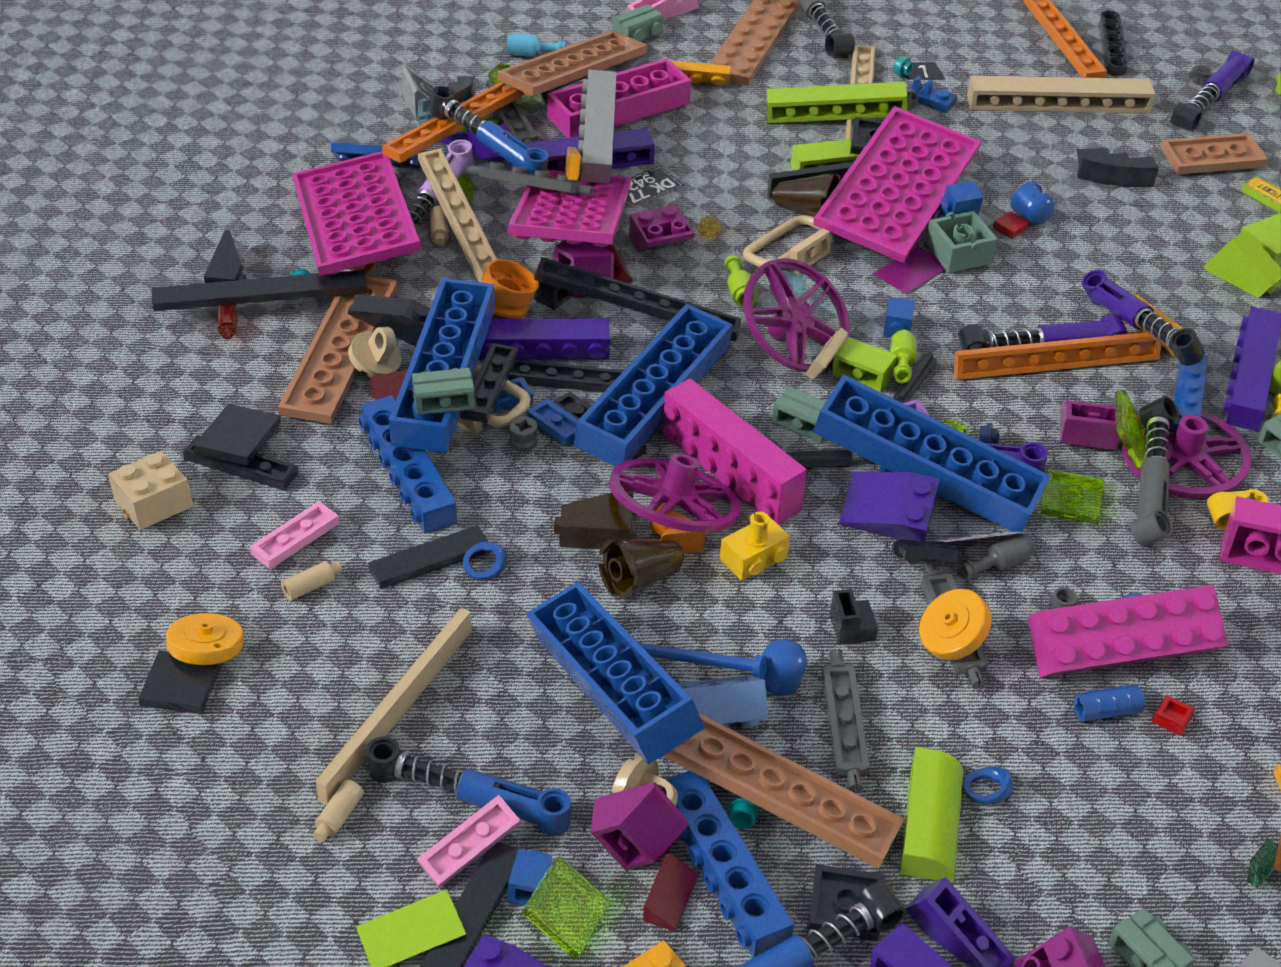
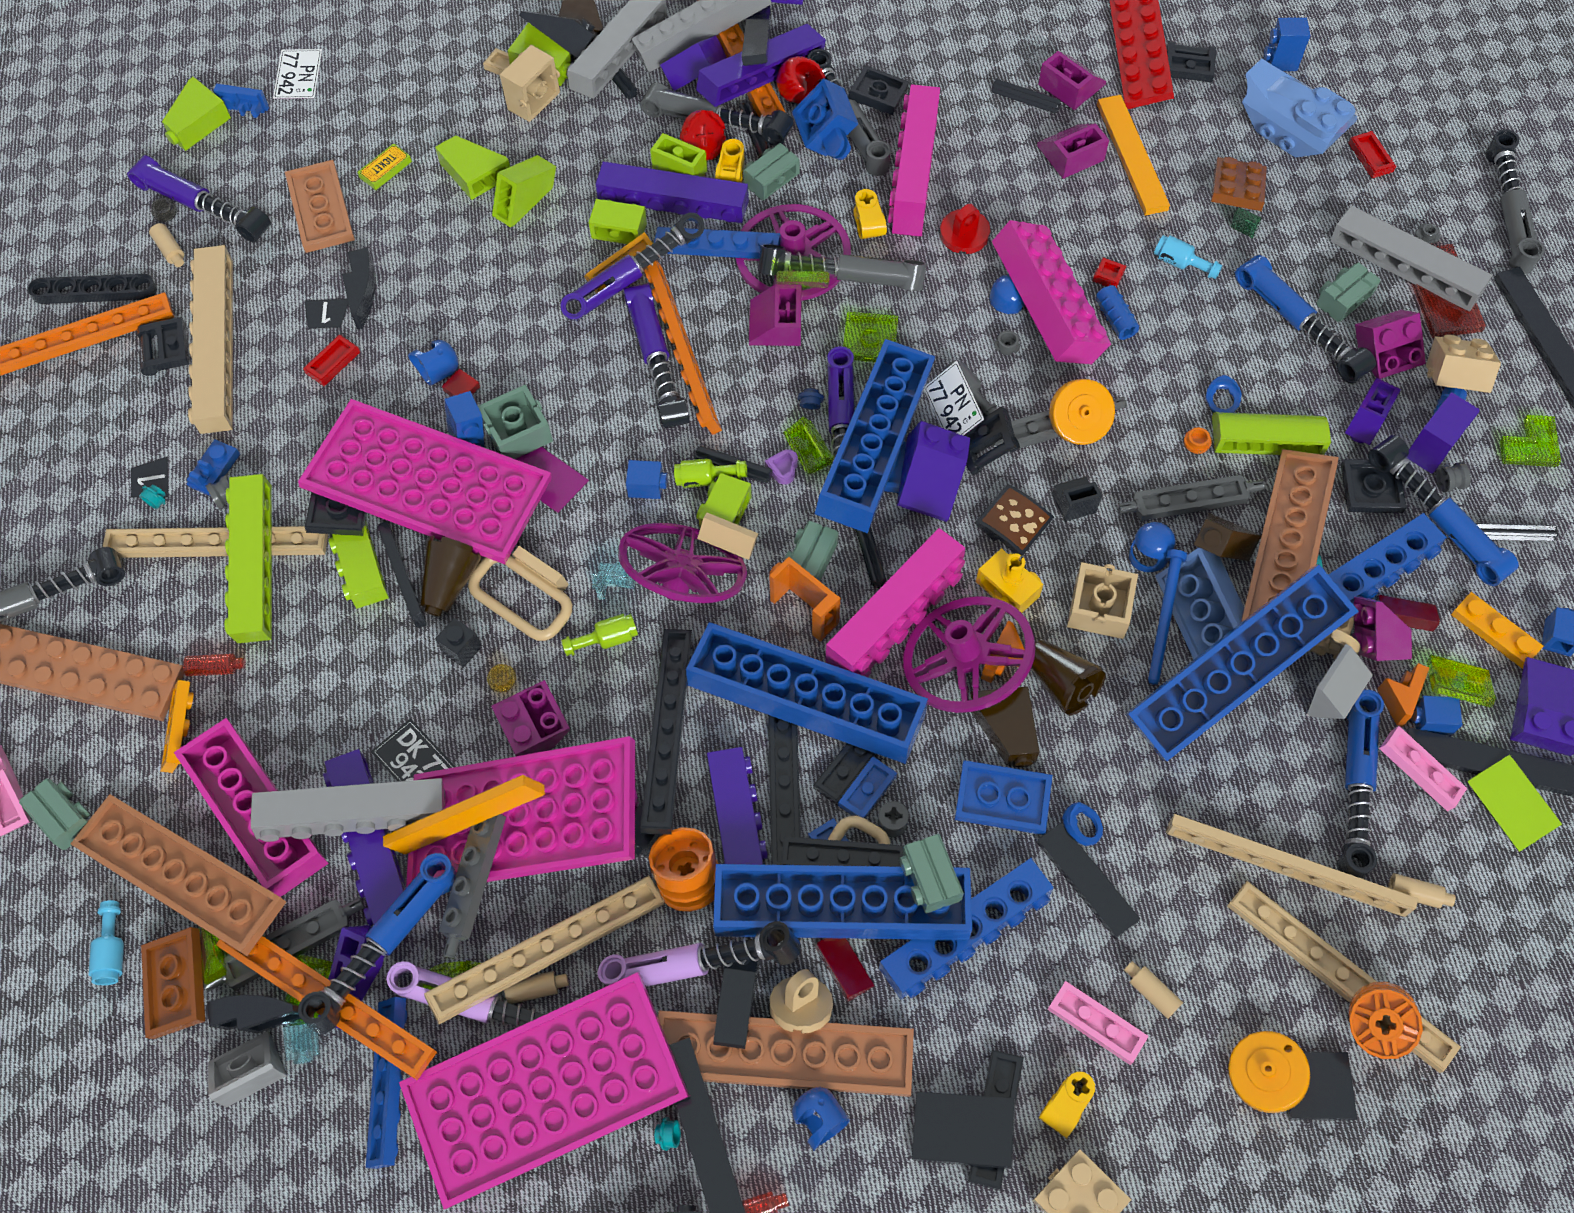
camera: 95 degrees left, 20 degrees up
(213, 718) = (1385, 999): none -> orange wheel
(233, 503) = (1065, 1107): none -> yellow piece
(272, 729) = (1328, 965): none -> tan tile
(284, 353) = (831, 1113): none -> blue helmet
(423, 286) = (697, 959): none -> piece
(482, 67) = (172, 983): none -> dark orange plate
(525, 509) = (1003, 797): none -> blue plate
(564, 844) = (1403, 696): none -> orange slope
(579, 770) = (1340, 686): none -> light grey slope
(719, 607) = (1102, 600): none -> tan brick
(744, 202) = (458, 642): none -> black brick
(747, 91) = (212, 664): none -> clear red cylinder
(756, 398) = (822, 600): none -> orange panel
(779, 710) = (1227, 539): none -> dark brown slope
(830, 567) = (1014, 519): none -> slope
(924, 739) = (1197, 440): none -> orange plate
(1040, 157) = (331, 360): none -> red tile
(1052, 69) = (171, 345): none -> black plate
(1164, 75) = (167, 244): none -> tan cylinder
(1168, 858) = (1259, 276): none -> piece
(1201, 785) = (1182, 254): none -> medium azure piece
(1213, 325) = (617, 221): none -> lime brick
(1234, 589) = (965, 230): none -> red tile

